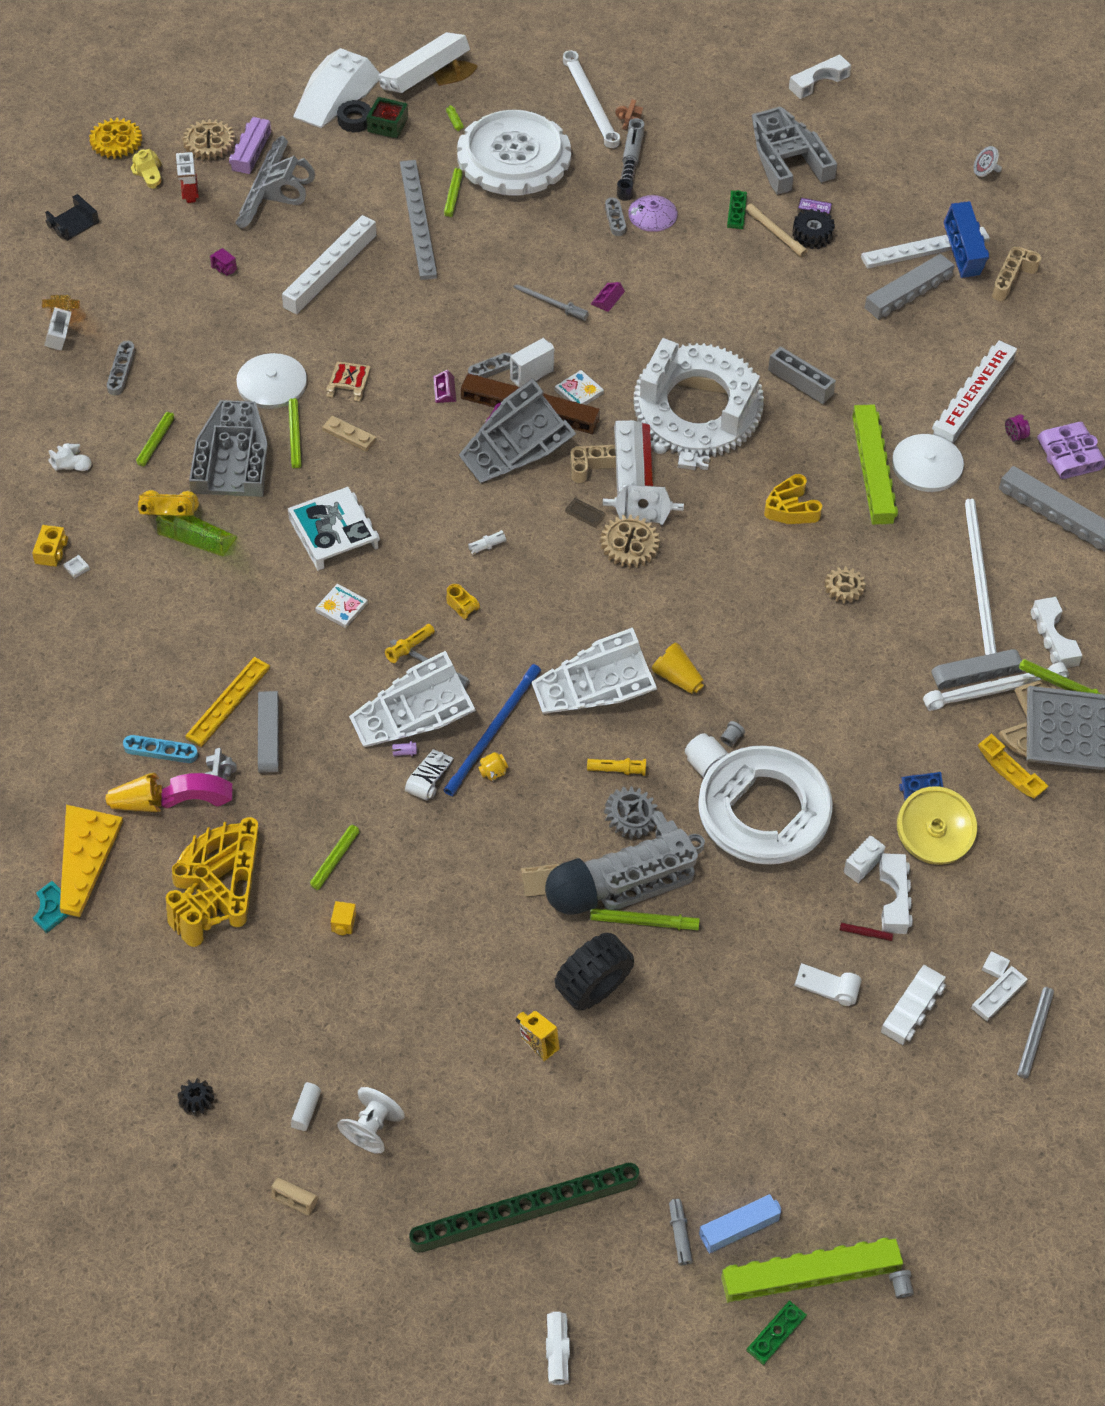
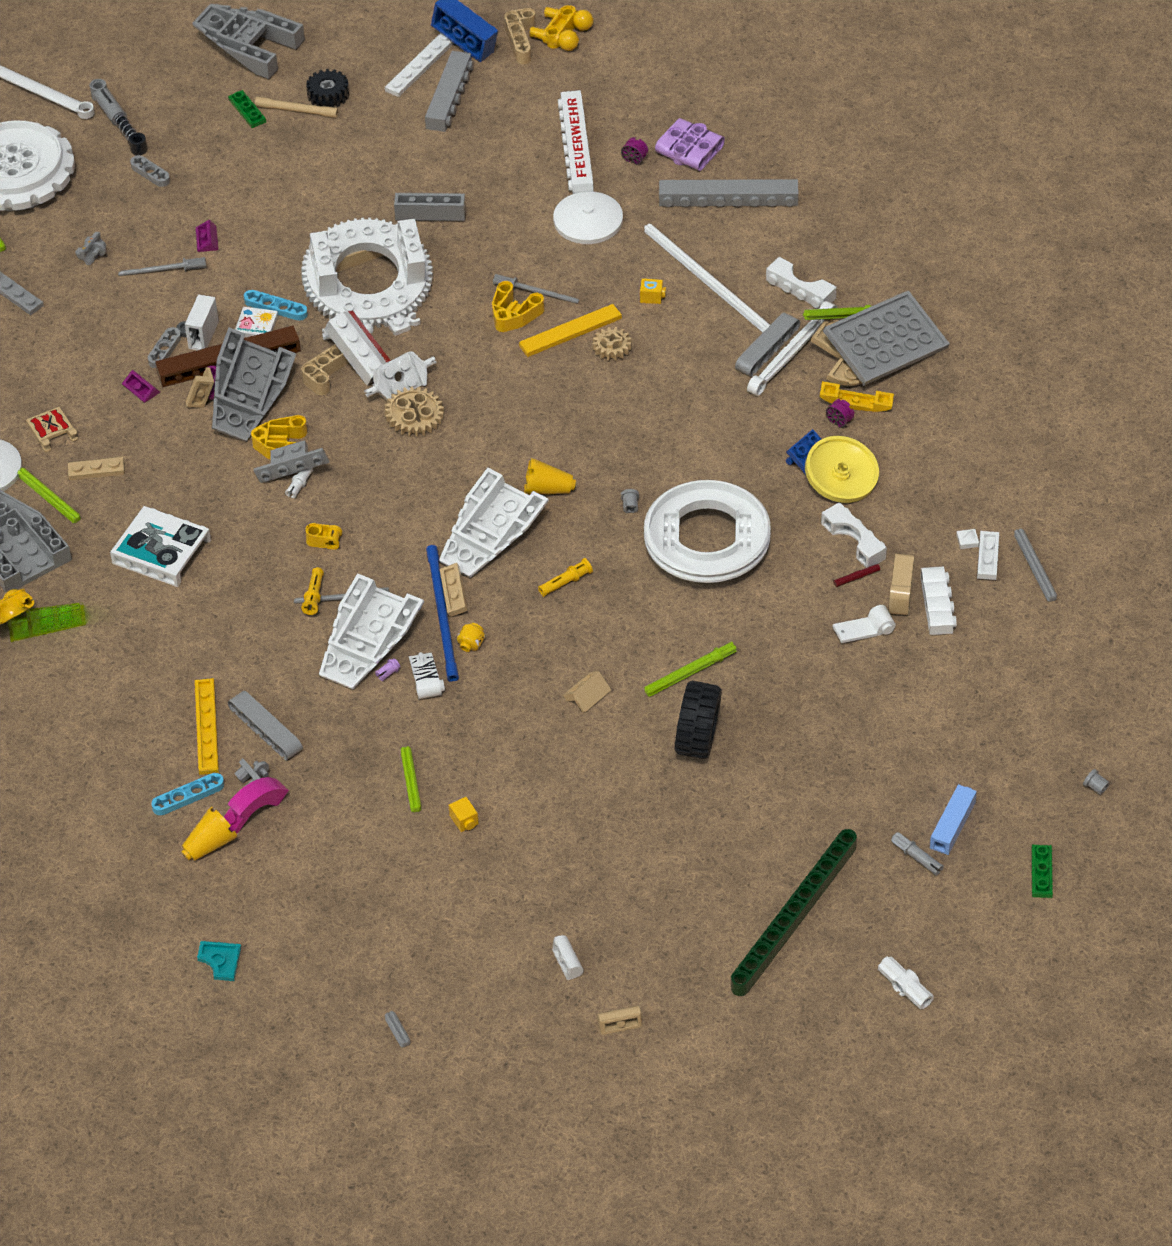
camera: 35 degrees left, 5 degrees down
(86, 847) = (206, 902): yellow wing -> none
(121, 1069) = (397, 1029): none -> light grey axle
(192, 913) = (346, 879): yellow beam -> none
(196, 1103) = (477, 1006): black gear -> none
(341, 605) = (226, 600): white tile -> none
(377, 1109) = (628, 917): white piece -> none
(477, 418) = (200, 390): none -> tan panel
(490, 520) = (290, 460): none -> light grey bracket
(500, 492) = (276, 433): none -> yellow connector
(512, 253) = (93, 247): none -> light grey hips
(518, 715) = (453, 589): none -> tan plate
(539, 1034) = (692, 792): yellow torso -> none
(579, 884) = (631, 667): light grey piece -> none
(585, 512) = (354, 412): clear smoke tile -> none
(609, 383) = (276, 303): none -> medium azure beam
(626, 802) = (609, 602): light grey gear -> none
(628, 114) = (80, 81): nougat hips -> none
(652, 213) = (178, 151): lavender dish -> none
(704, 752) = (627, 526): white piece -> none
(807, 204) = (302, 74): medium lavender tile -> none
(811, 1270) = (1028, 815): lime brick -> none
(812, 482) = (499, 278): none -> light grey piece
(823, 551) = (570, 330): none -> yellow tile
(864, 859) = (810, 525): white brick -> none
(873, 464) = (549, 242): lime brick -> none
(881, 978) = (901, 584): none -> tan beam
(920, 559) = (652, 291): none -> yellow brick
(983, 772) = (840, 412): none -> magenta wheel
(1049, 287) = (560, 29): none -> yellow piece

